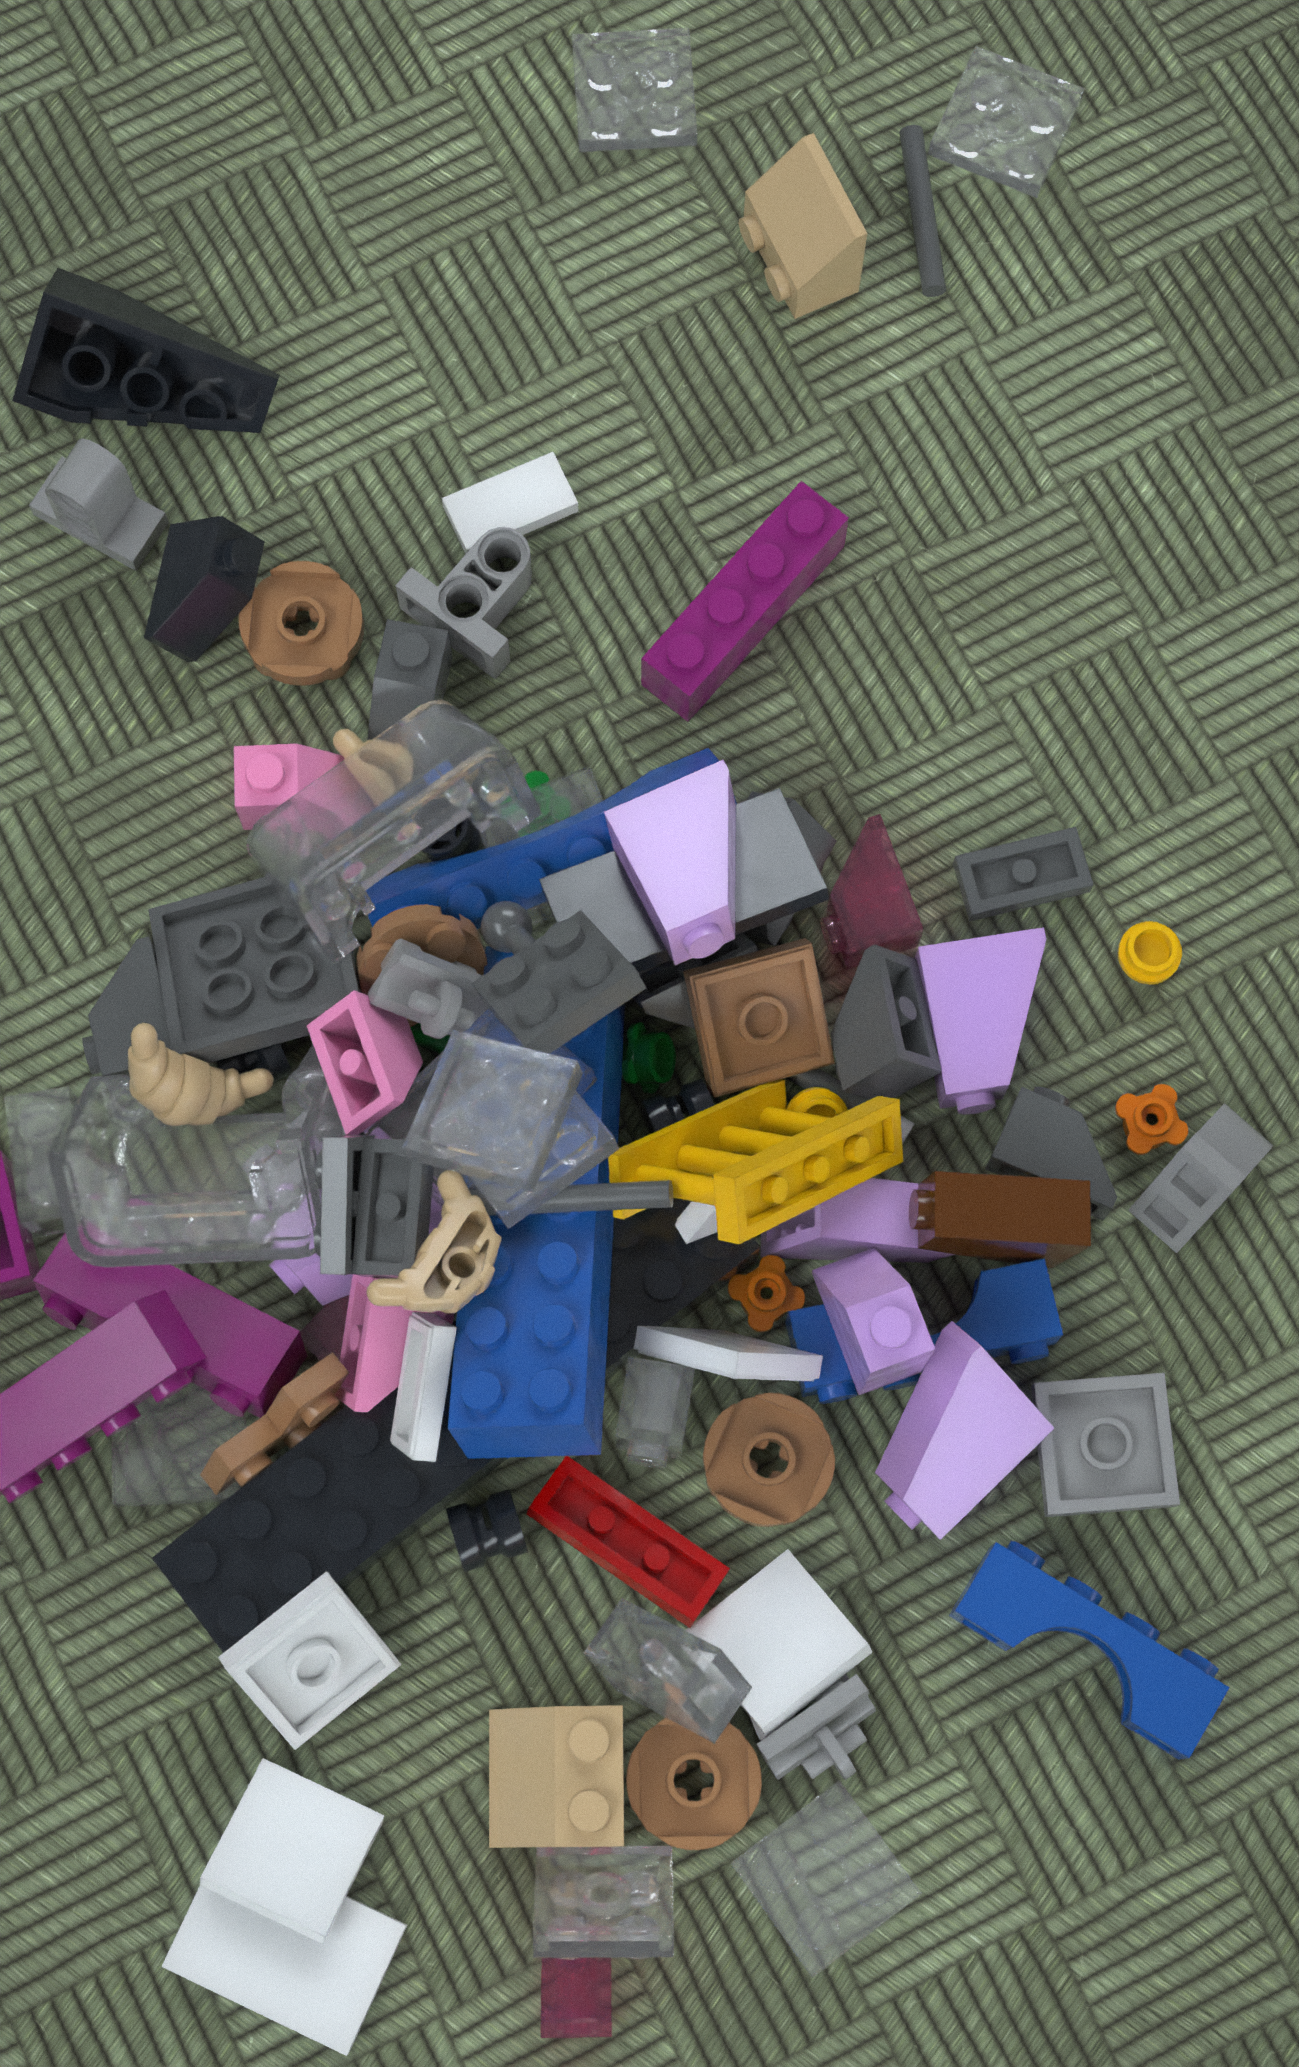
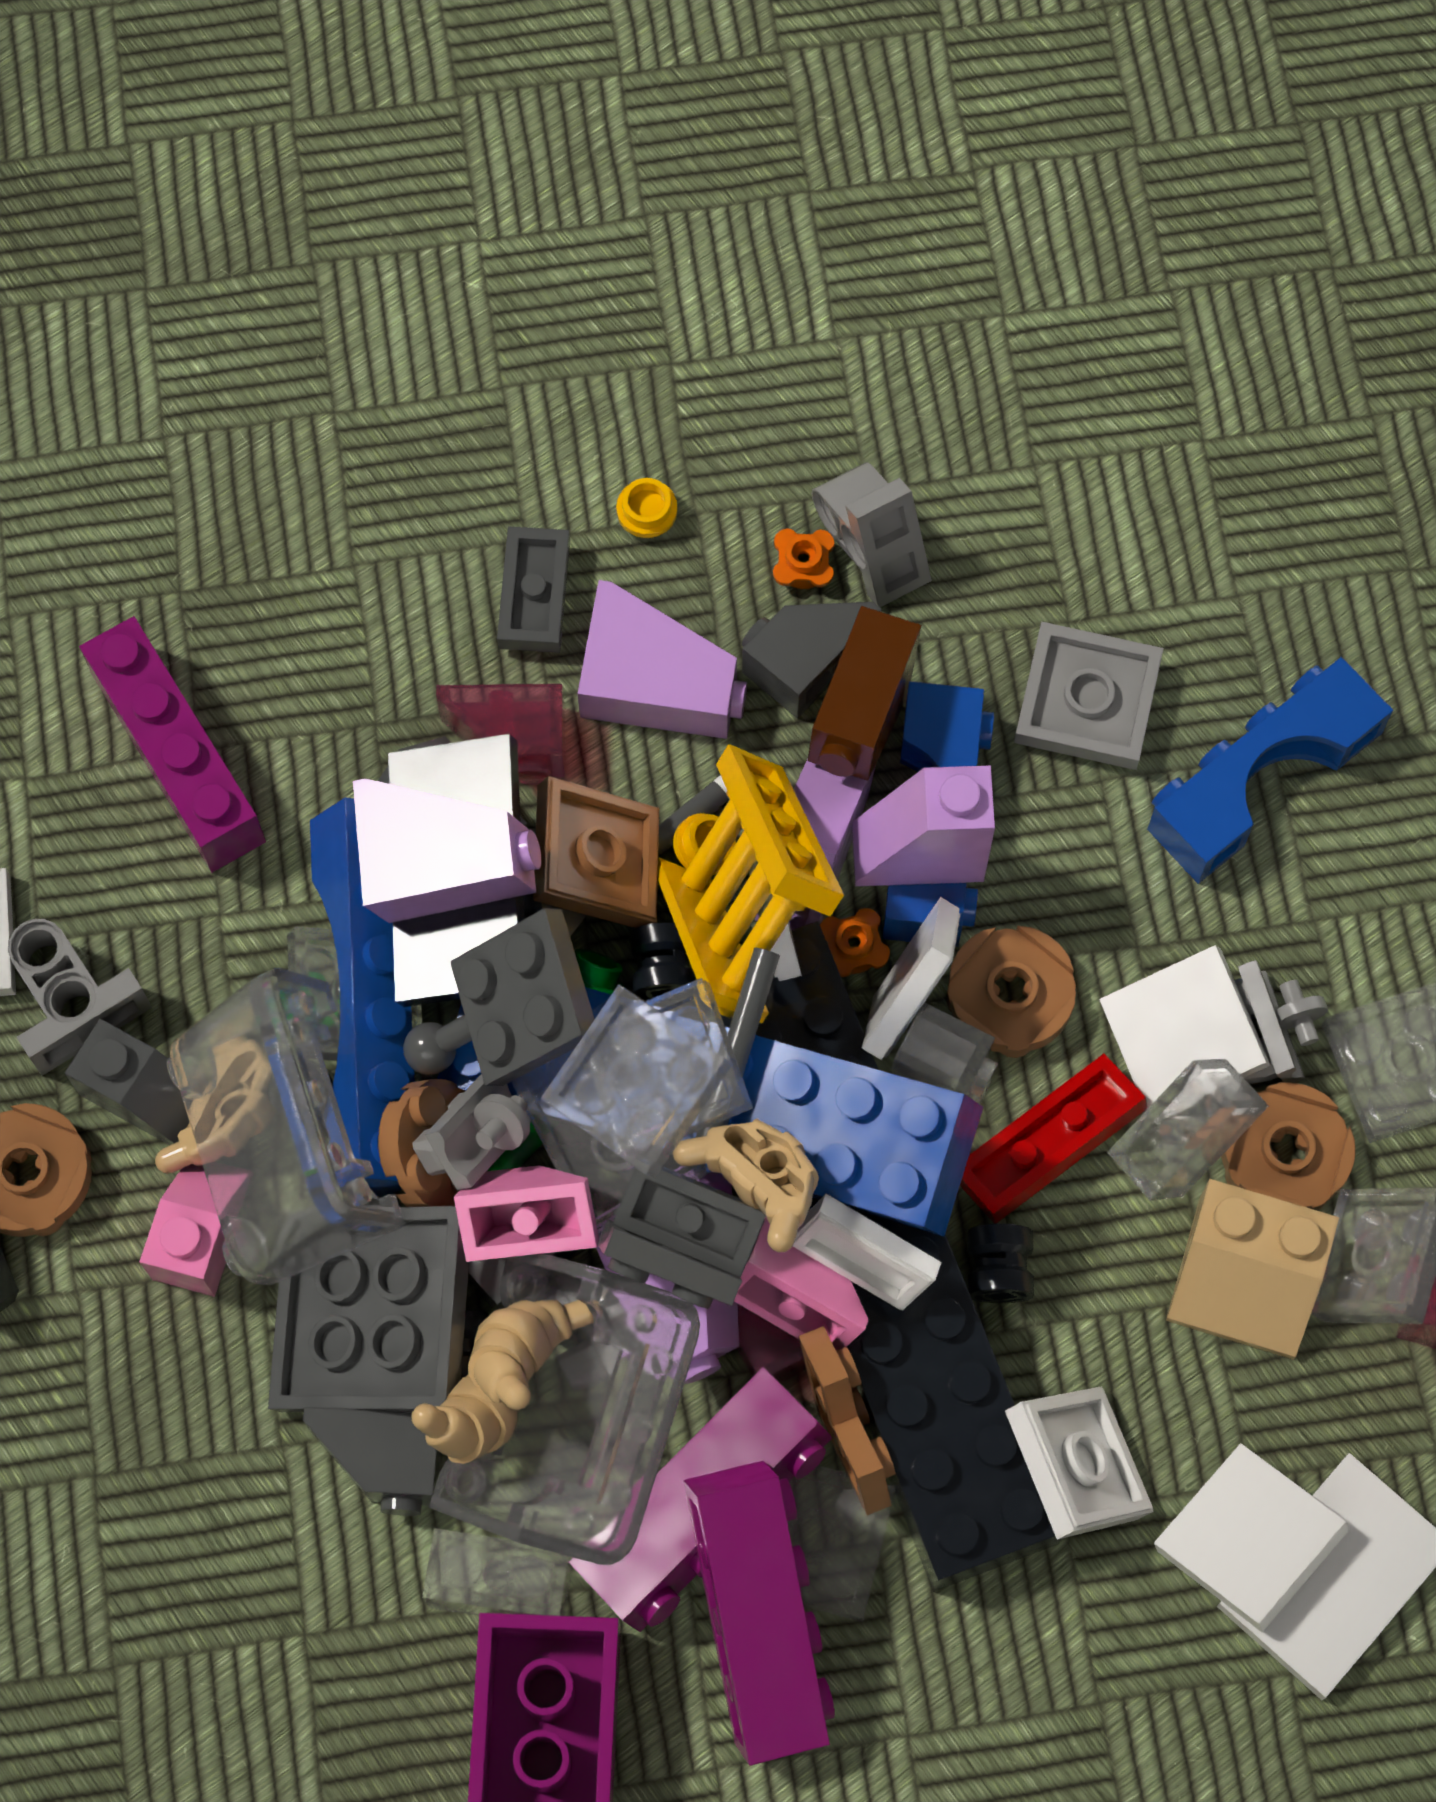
camera: 70 degrees left, 5 degrees down
(238, 1095) = (517, 1343): none -> tan piece
(884, 1028) = (645, 751): dark grey slope -> none
(957, 1435) = (1054, 811): lavender slope -> none

